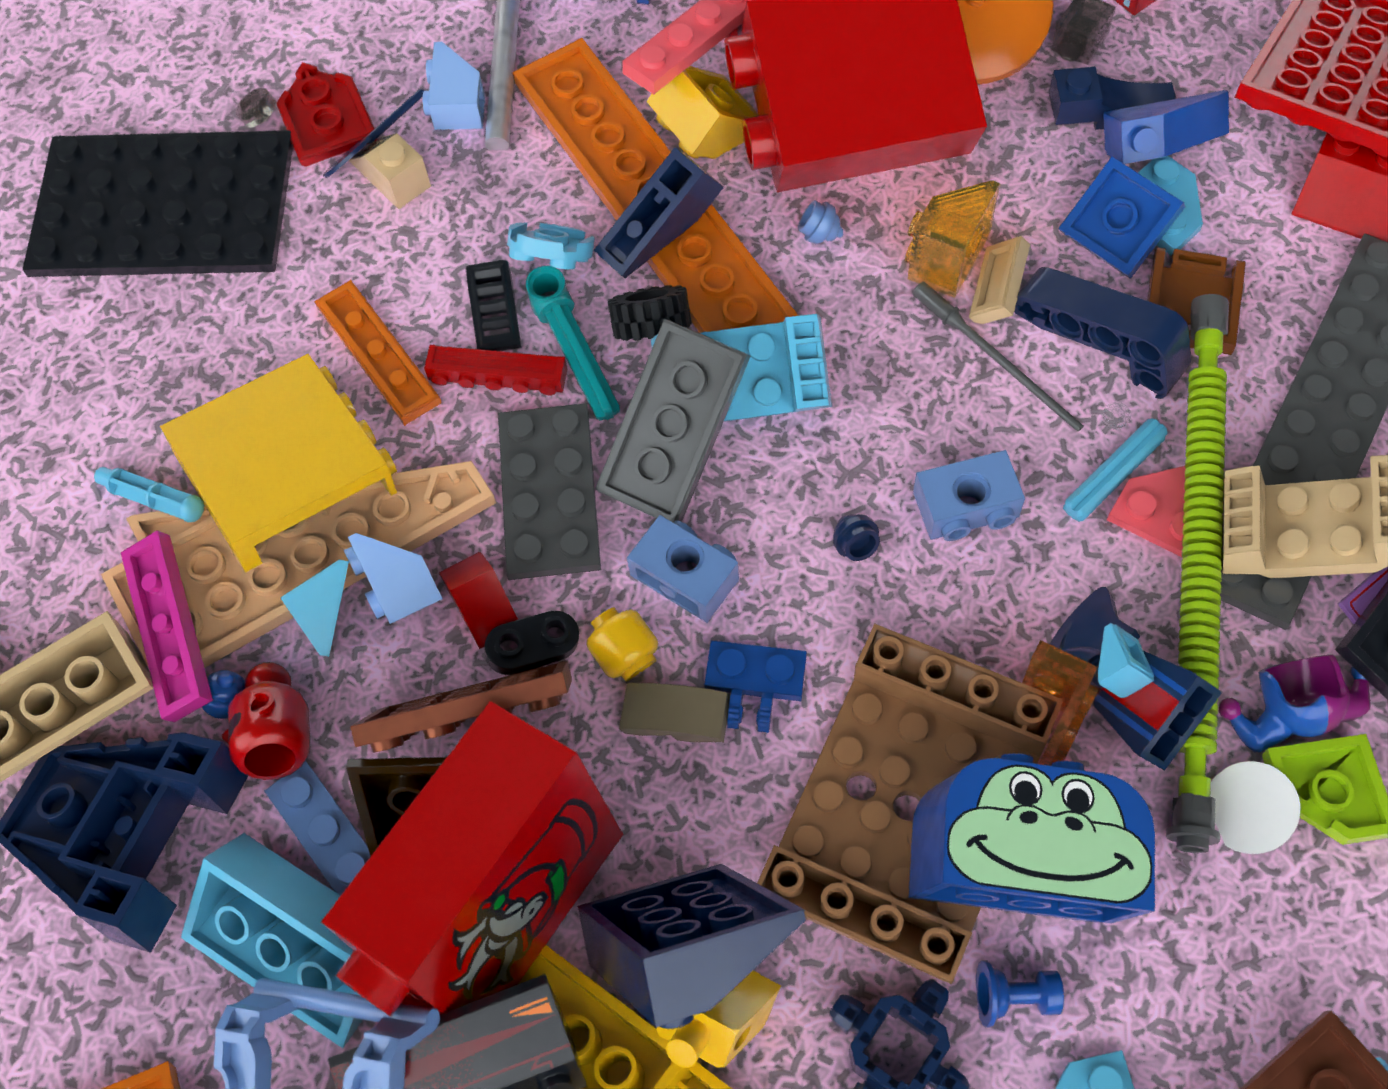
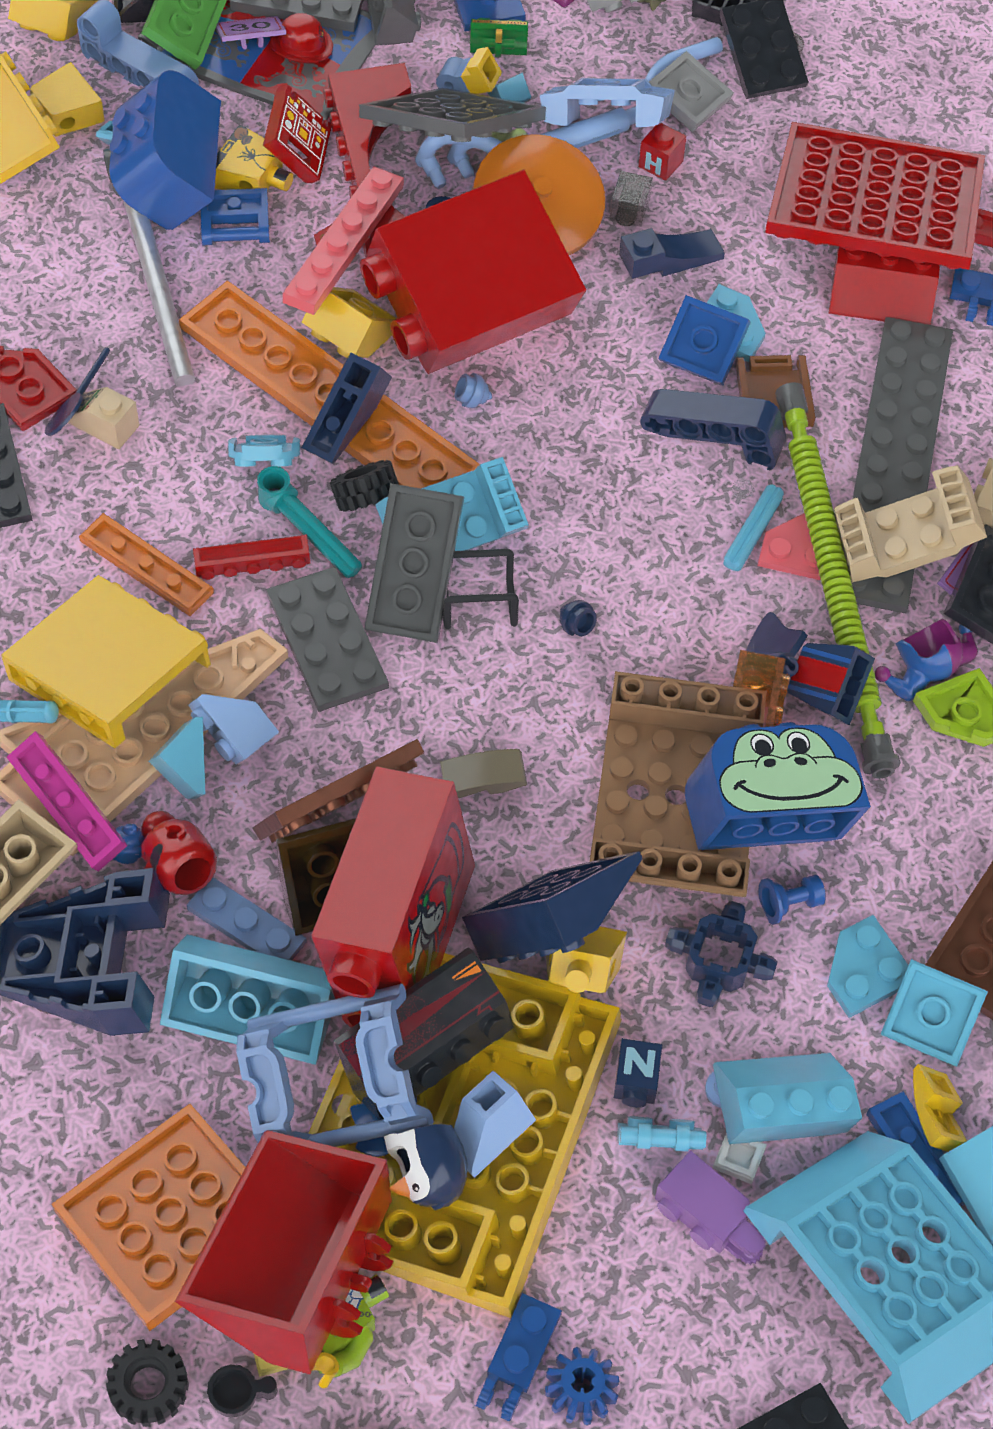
camera: 25 degrees left, 5 degrees down
(454, 92) = (137, 343): light blue slope -> none
(478, 596) = (305, 728): red slope -> none
(489, 281) = (225, 488): black slope -> none
(534, 644) = (357, 748): black plate -> none
(622, 643) = (431, 729): yellow head -> none
(696, 590) = (470, 684): medium blue brick -> none
(698, 484) = (510, 596): none -> black piece
(755, 672) = (534, 732): blue hinge -> none
(951, 236) = (580, 381): clear yellow slope -> none
(951, 316) = (596, 441): dark grey piece -> none
(986, 479) = (662, 554): medium blue brick -> none
(999, 281) = (626, 406): tan tile -> none
(1122, 663) = (801, 654): medium azure slope -> none
(1165, 126) = (716, 264): blue slope -> none
(1254, 807) = (918, 735): white sticker -> none

